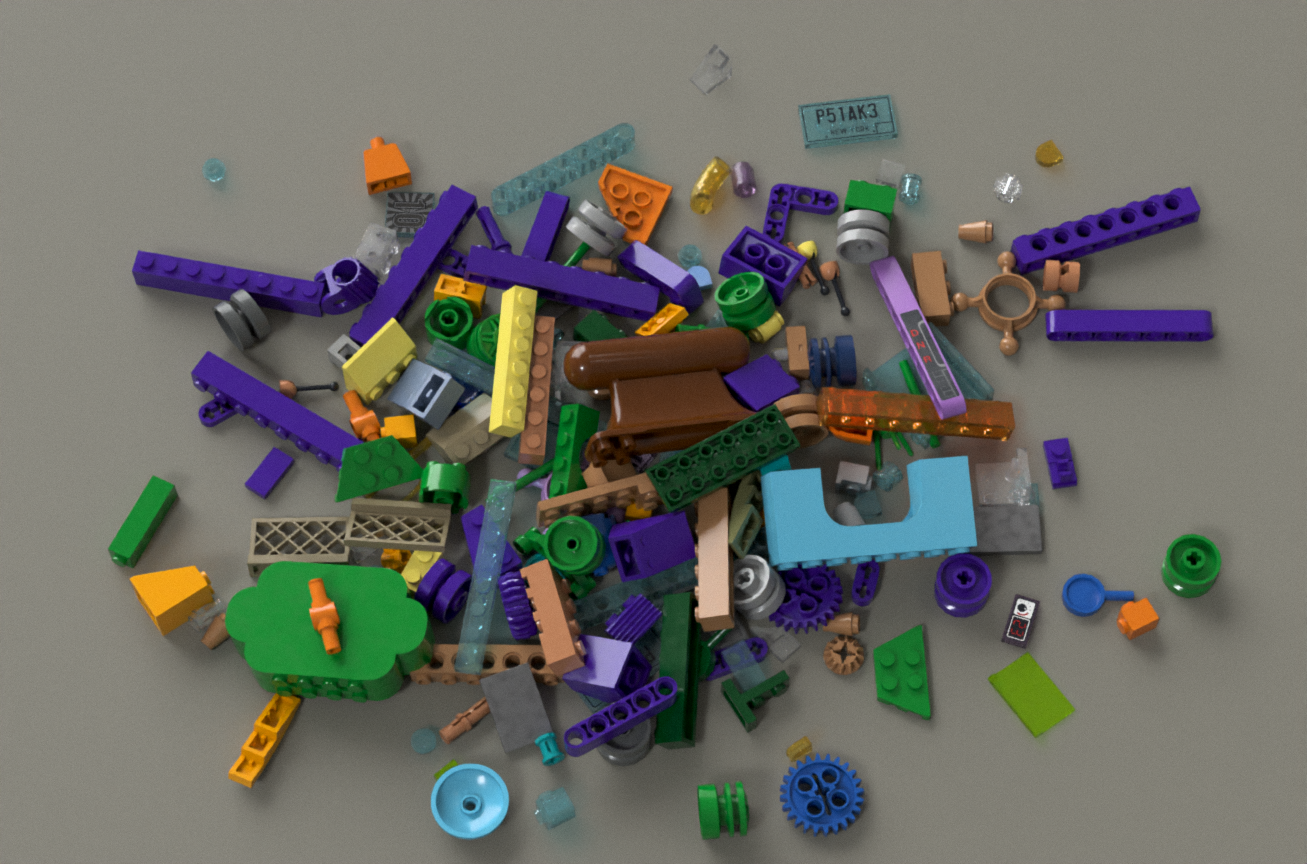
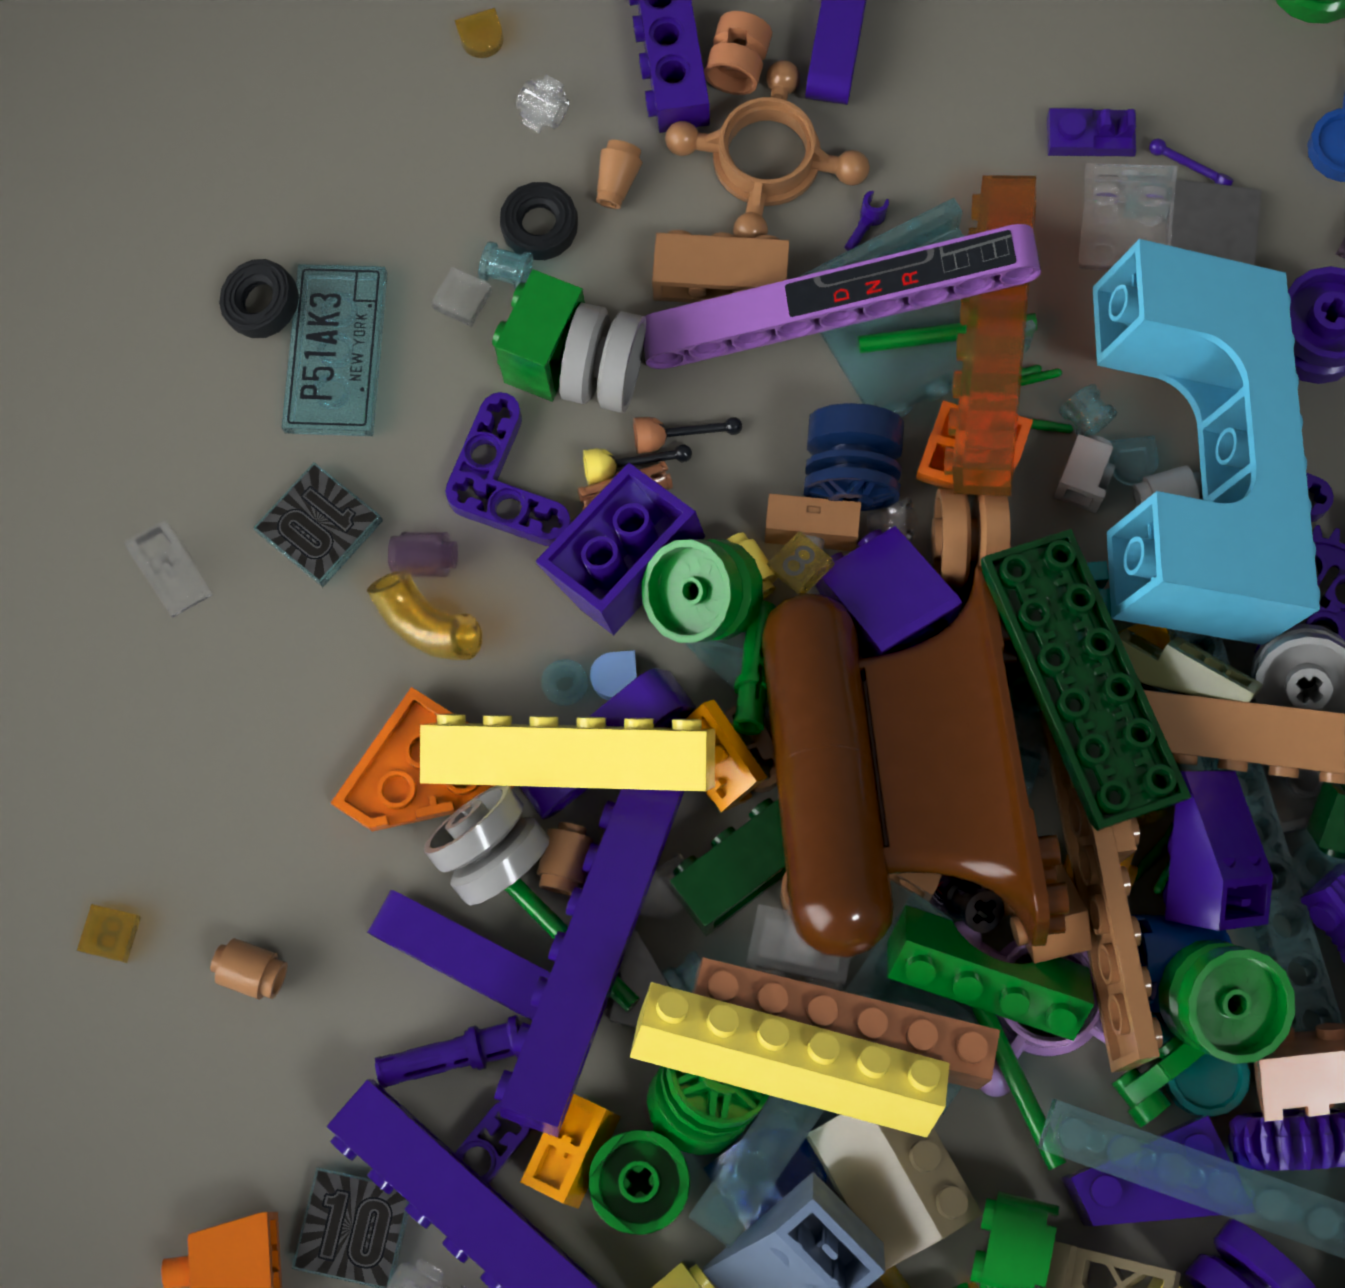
camera: 75 degrees left, 10 degrees up
(521, 146) = (248, 969): none -> medium nougat brick
(528, 86) = (108, 933): none -> clear yellow tile
(557, 178) = (339, 908): clear light blue beam -> none
(645, 251) = (568, 754): none -> light yellow brick
(750, 132) = (318, 524): none -> tile
(768, 344) = (800, 564): none -> clear yellow tile
(866, 69) = (242, 282): none -> black tyre
(945, 188) = (539, 196): none -> black tyre
(980, 358) = (869, 217): none -> dark purple hand
(1045, 533) = (1158, 147): none -> dark purple hinge

